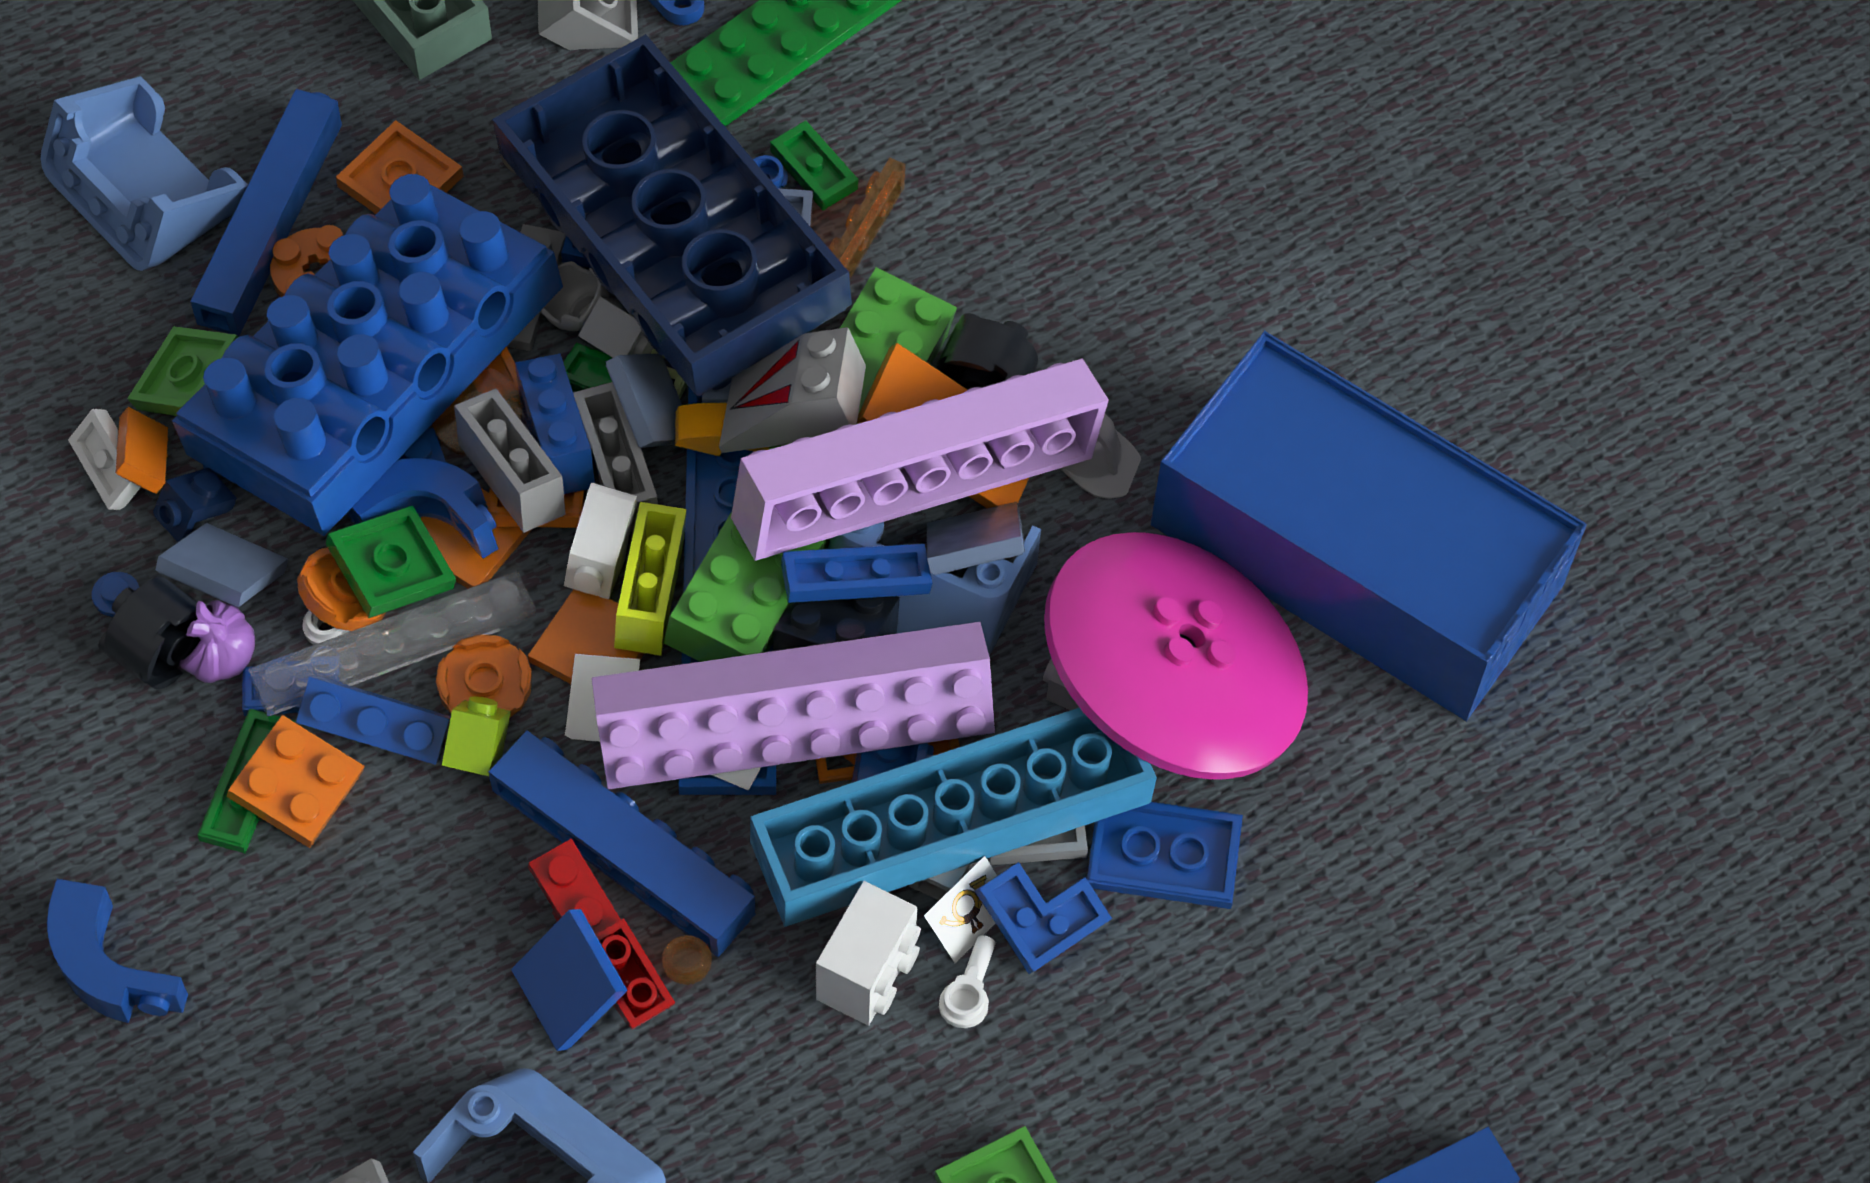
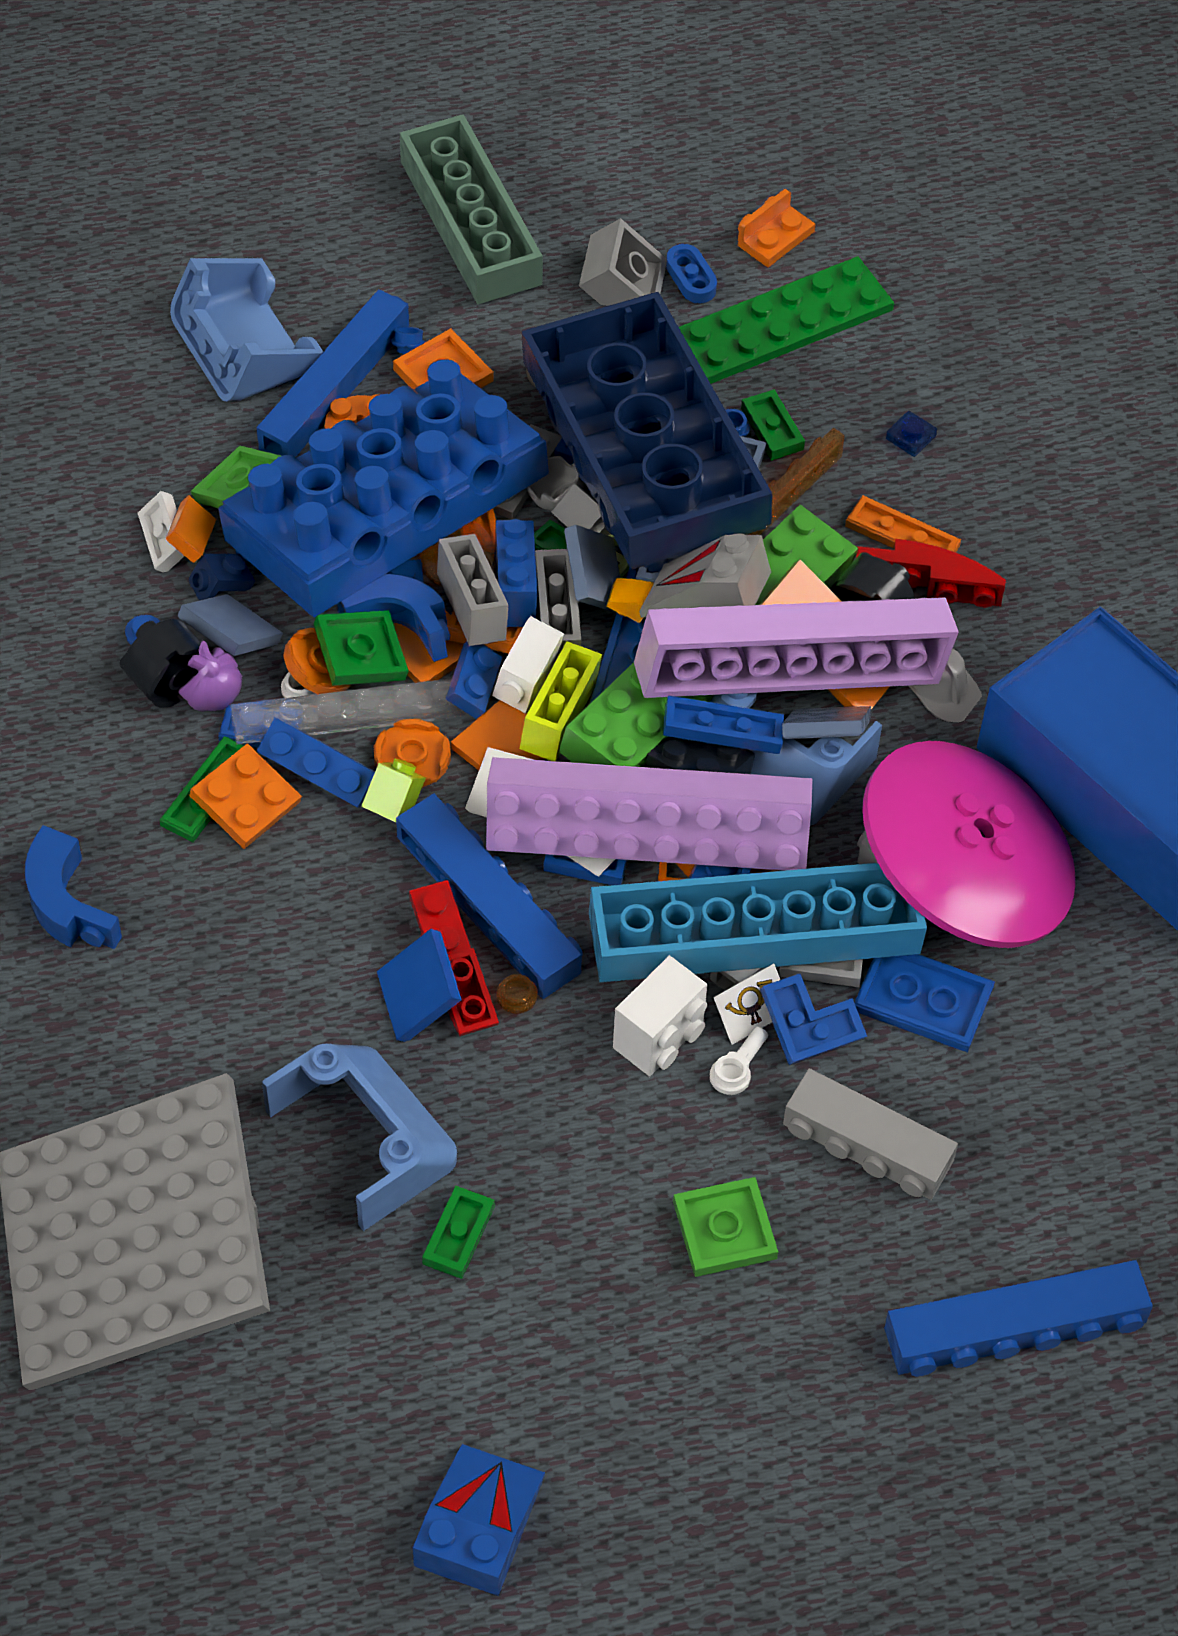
camera: 15 degrees right, 5 degrees down
(345, 144) = (407, 338): none -> blue plate
(536, 570) = (474, 679): none -> blue plate
(980, 142) = (911, 433): none -> clear blue plate
(1000, 271) = (886, 524): none -> orange tile
(1063, 313) = (944, 573): none -> red slope
(1144, 1041) = (869, 1134): none -> light grey brick

